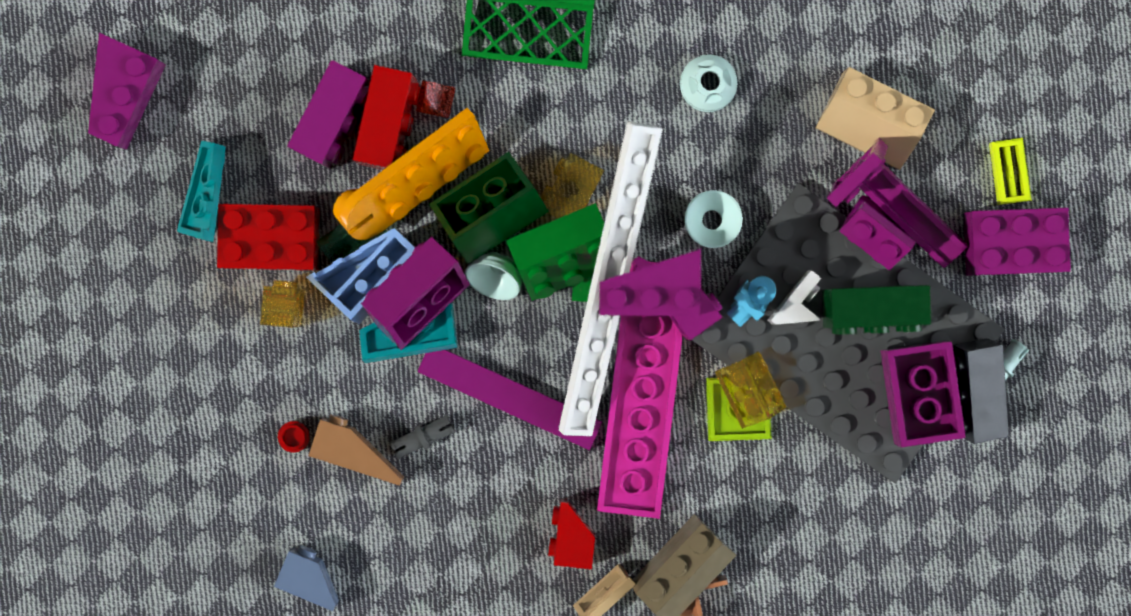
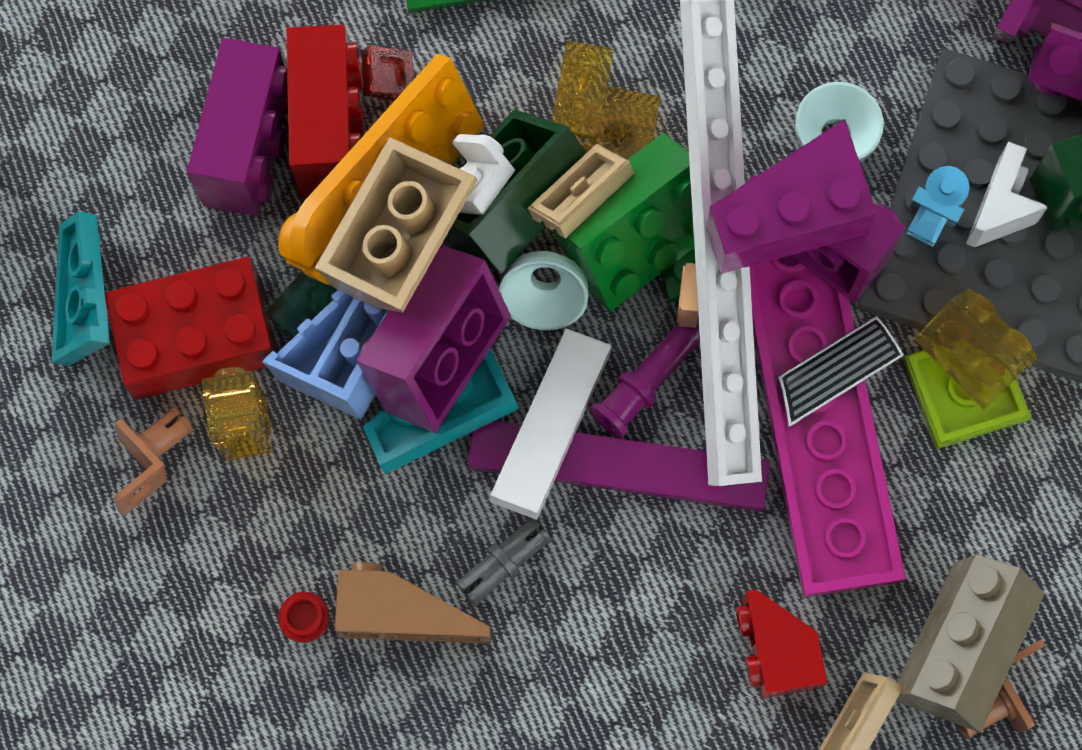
camera: 10 degrees left, 15 degrees down
(226, 305) = (147, 450): none -> nougat bracket
(407, 226) = (395, 226): none -> tan slope
(470, 202) = (489, 166): none -> white bracket
(475, 361) = (550, 424): none -> white tile
(534, 232) = (586, 194): none -> tan tile
(534, 354) = (638, 388): none -> magenta pin
(554, 153) = (582, 88): none -> clear yellow bracket
(578, 314) = (688, 299): none -> light nougat tile
(661, 378) = (837, 369): none -> sticker

